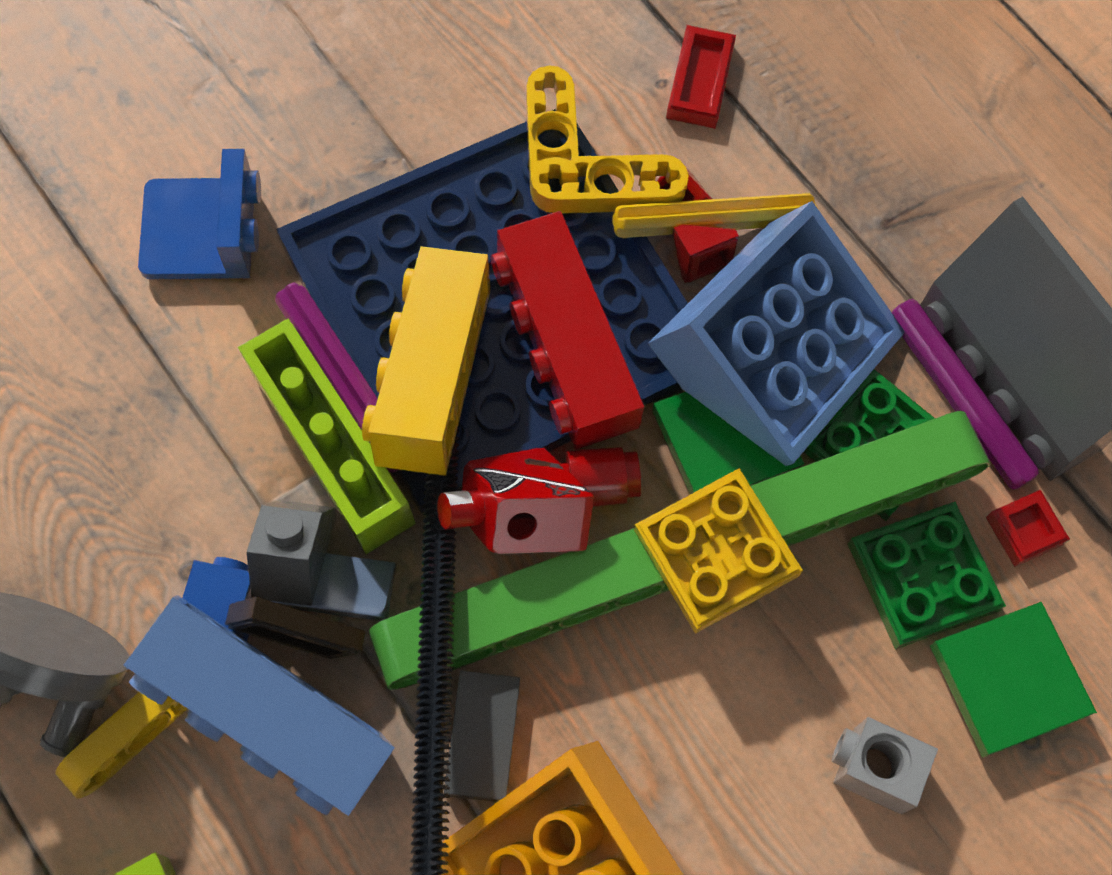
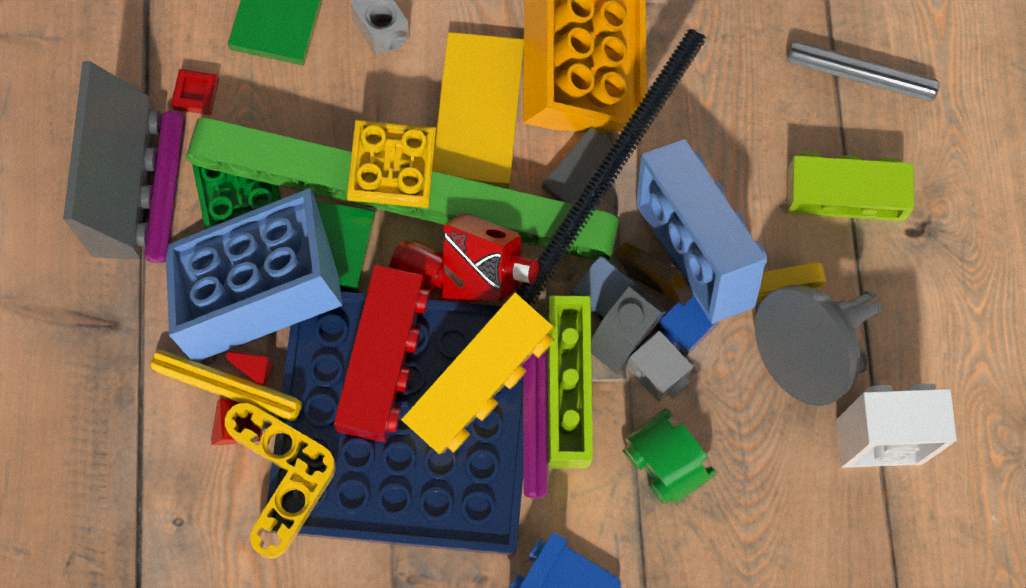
camera: 145 degrees left, 5 degrees up
(151, 414) = (669, 457): none -> green brick
(217, 524) = (660, 367): none -> light grey brick
(672, 734) = (478, 108): none -> yellow tile
(700, 77) = (149, 506): red tile -> none
(925, 575) = (275, 99): green tile -> none

